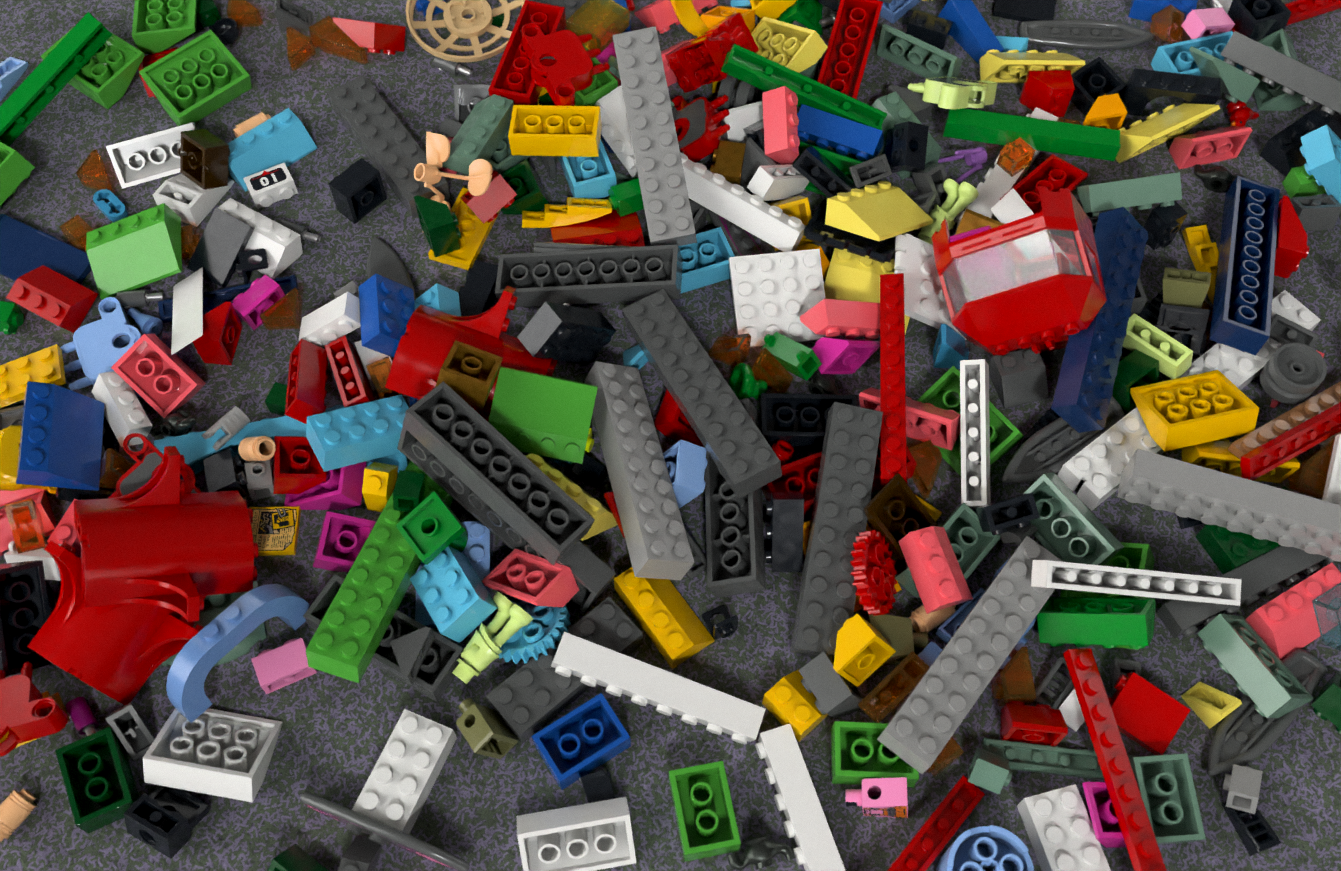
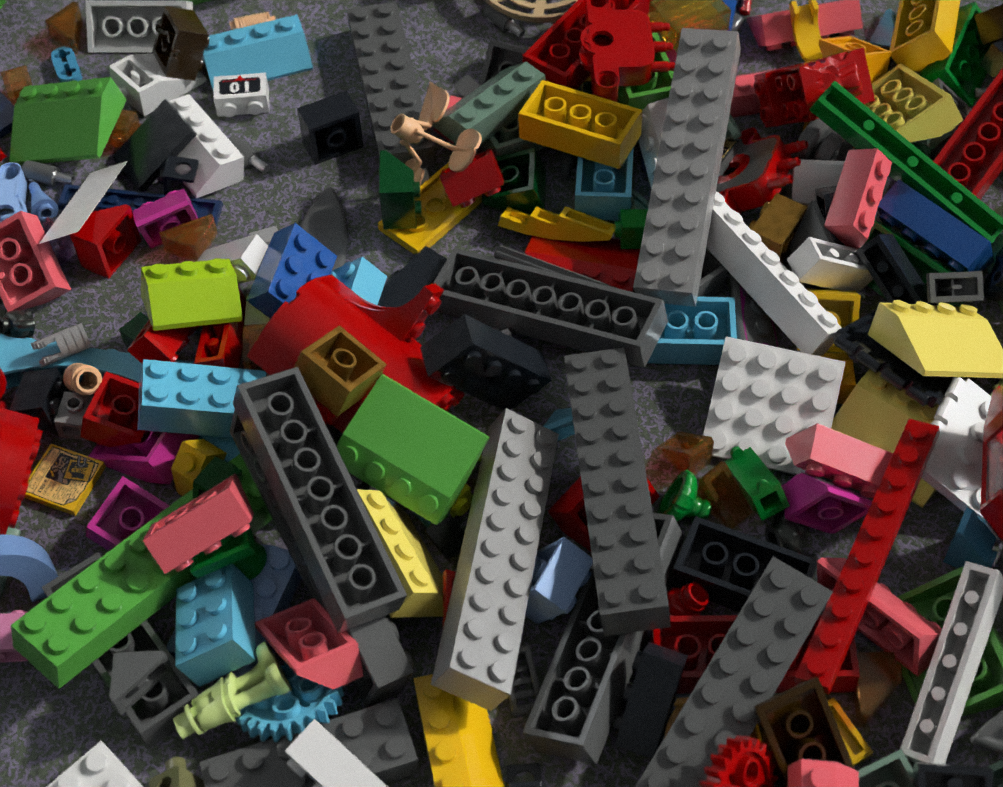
camera: 25 degrees right, 5 degrees down
(317, 354) = (190, 294): none -> lime slope
(416, 524) = (199, 525): none -> coral slope

